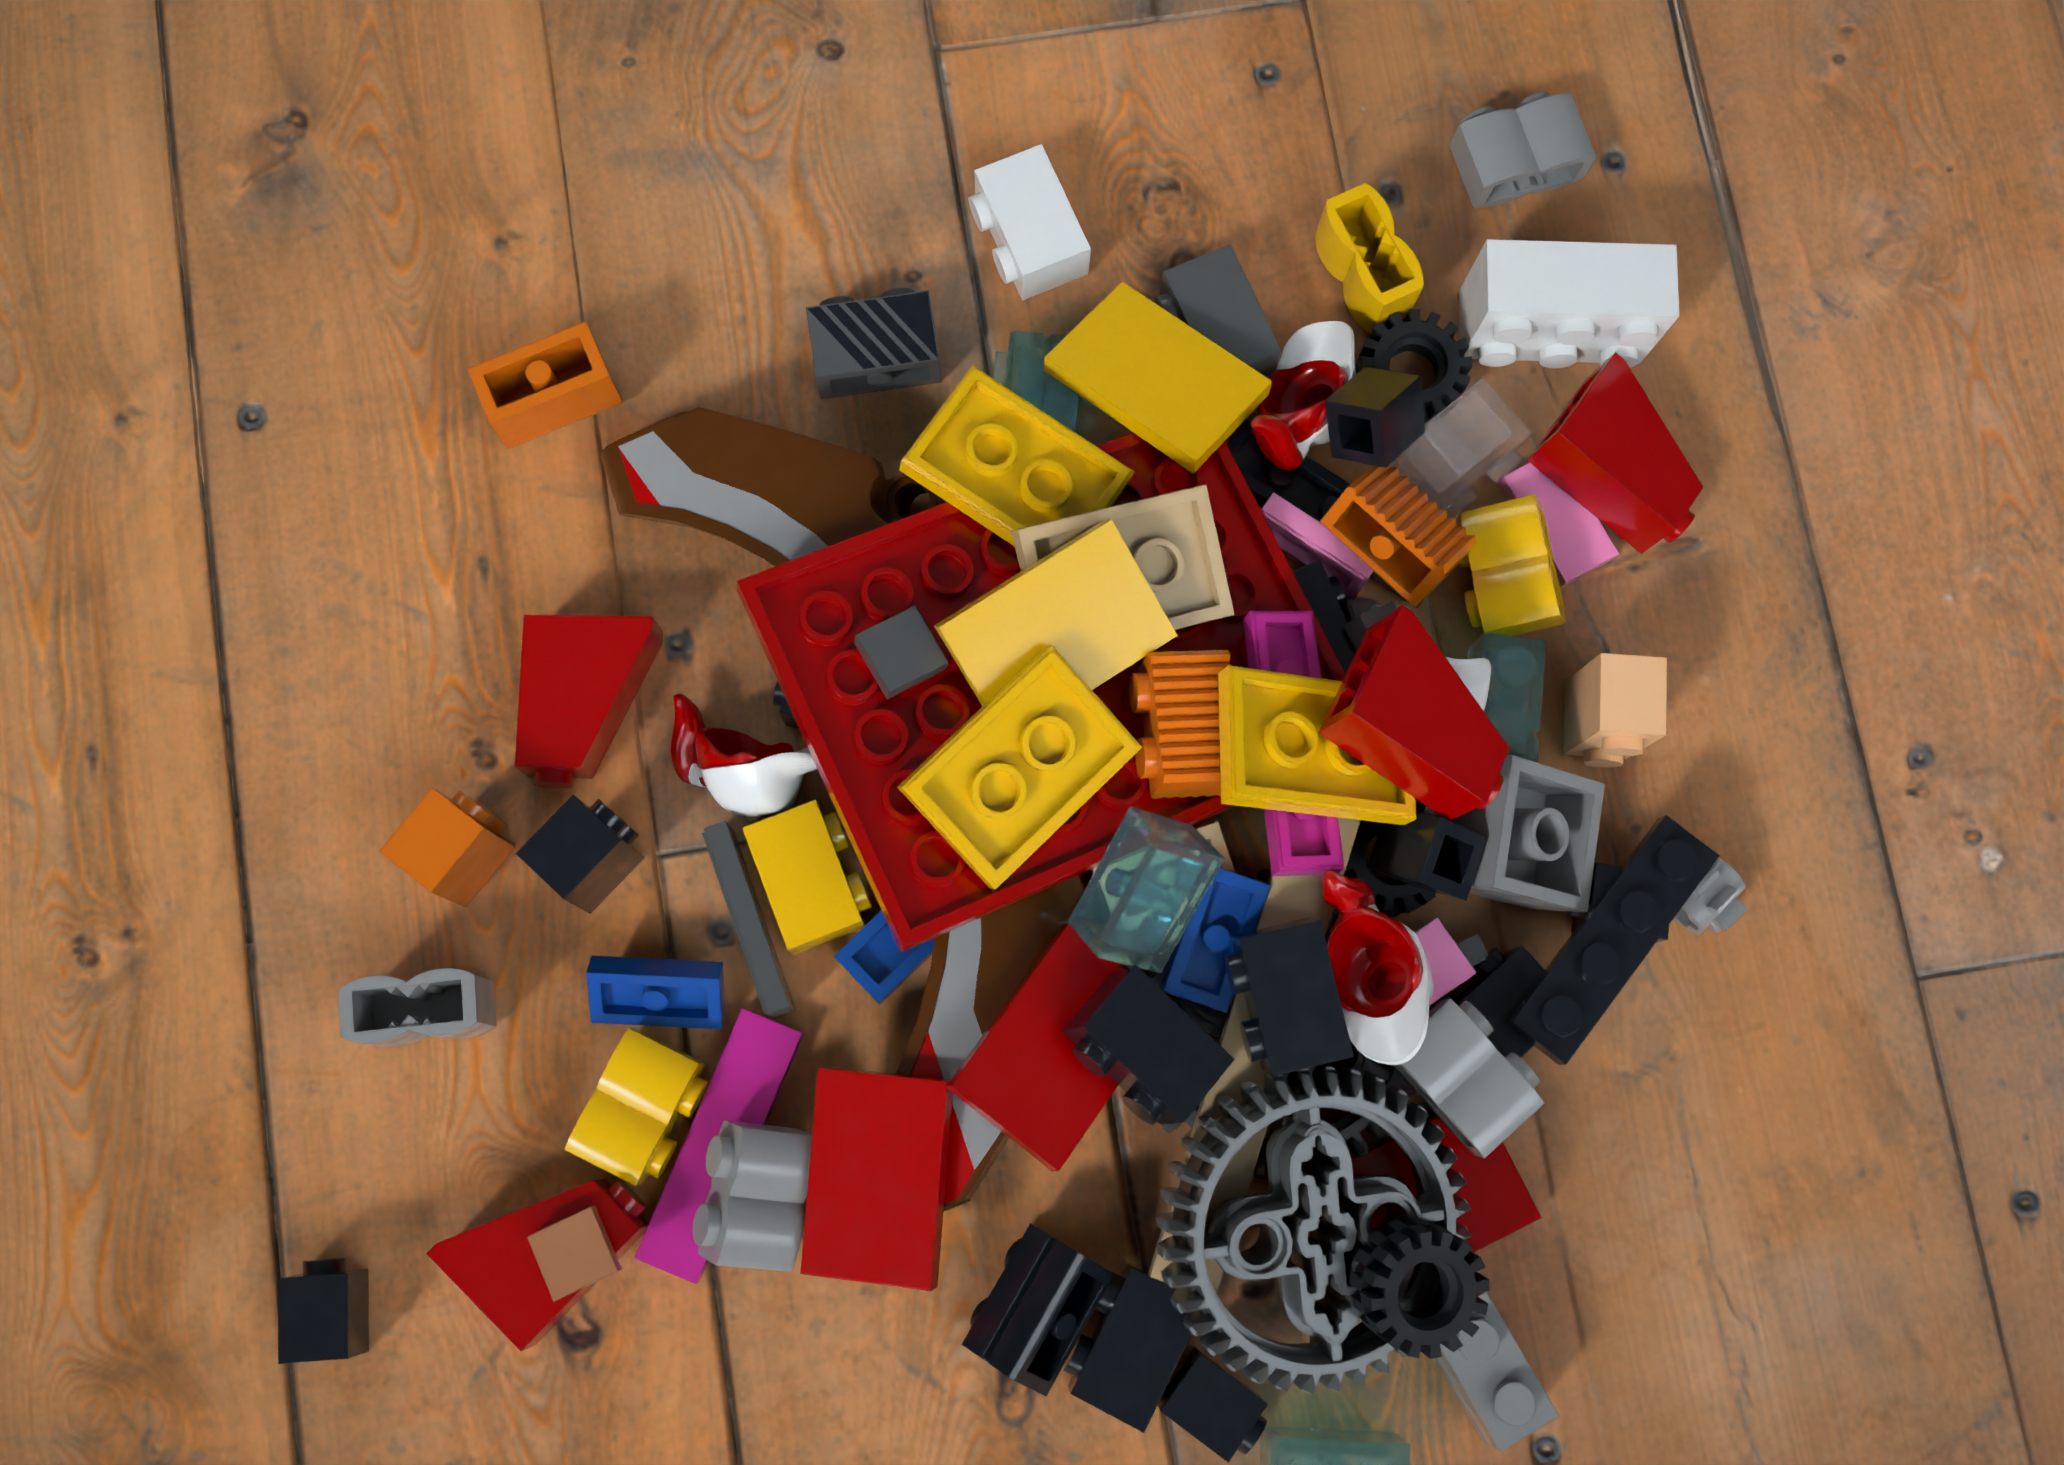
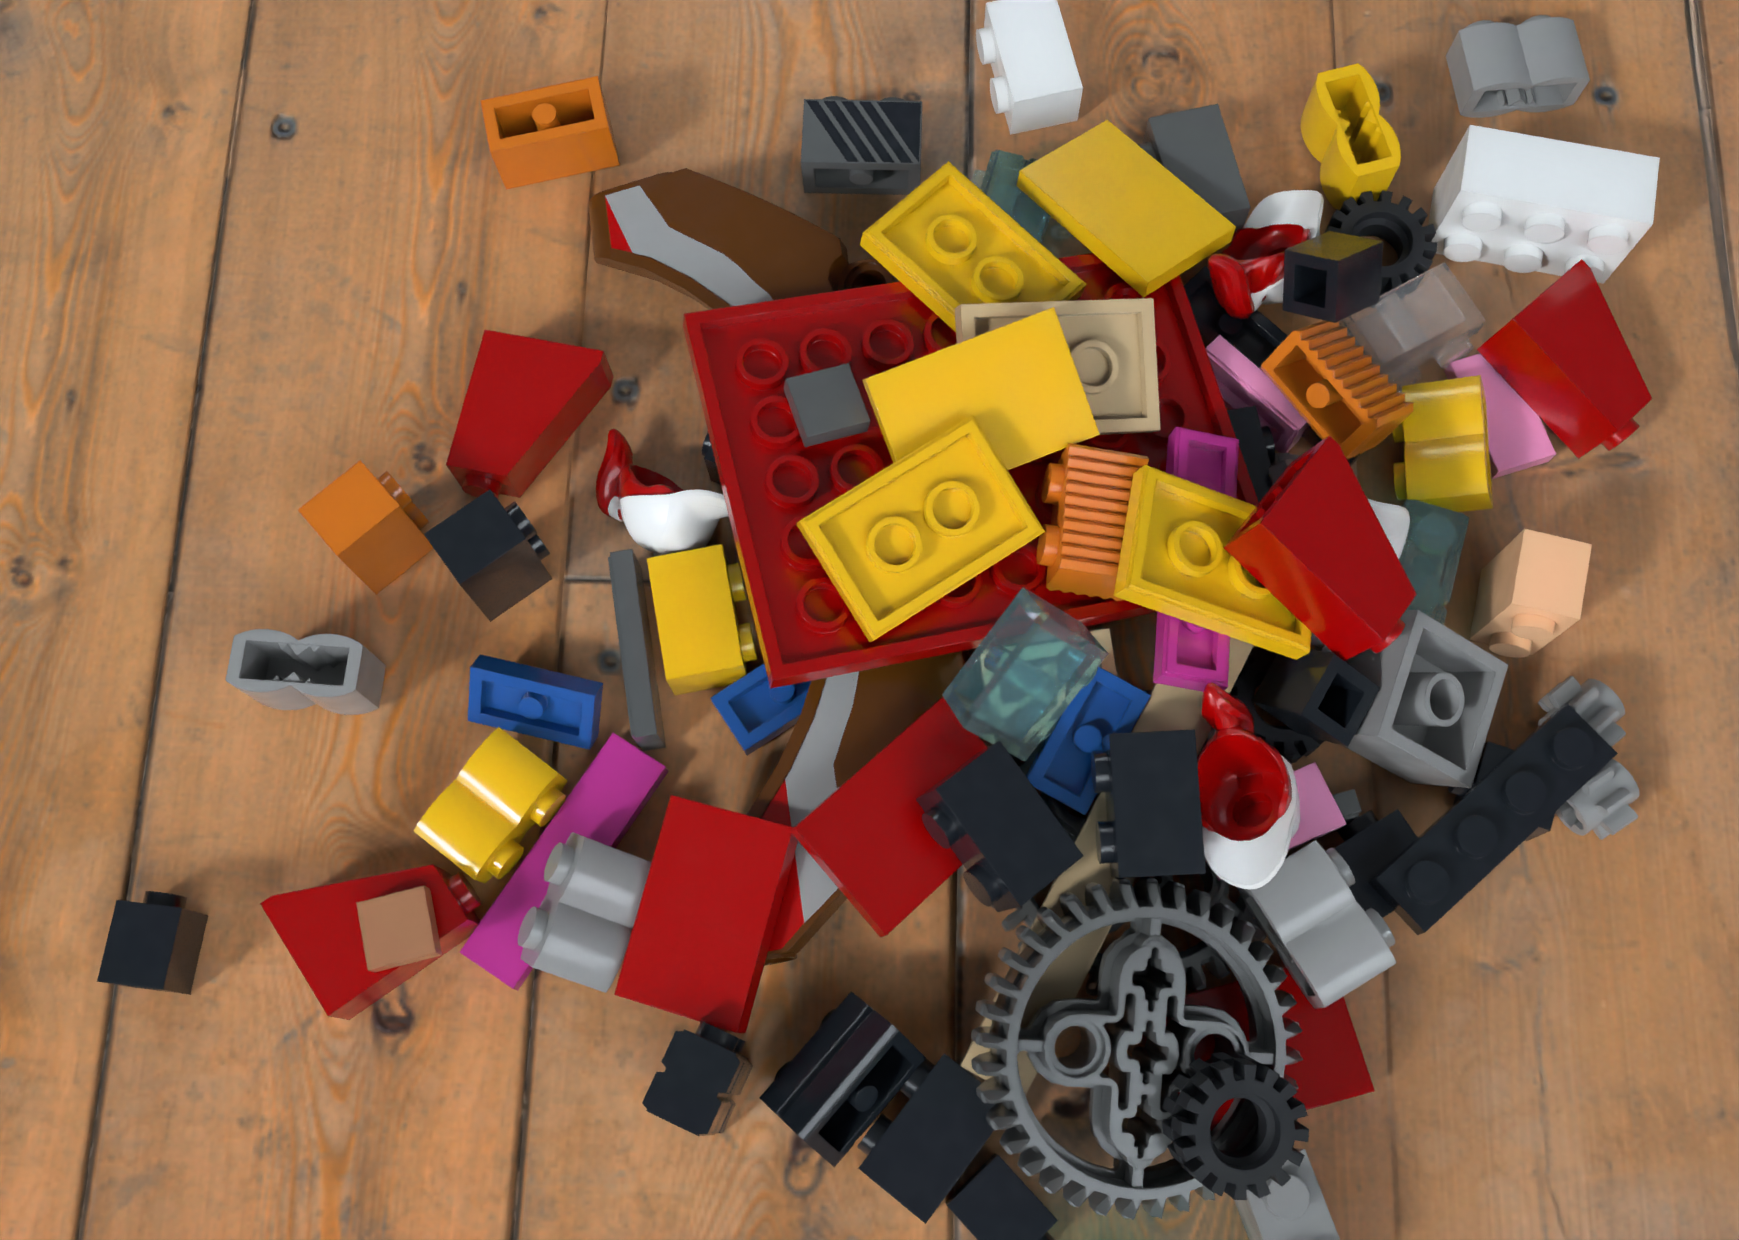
camera: 20 degrees right, 5 degrees down
(901, 1343) = (699, 1080): none -> black brick
(1686, 805) = (1592, 701): none -> light grey gear

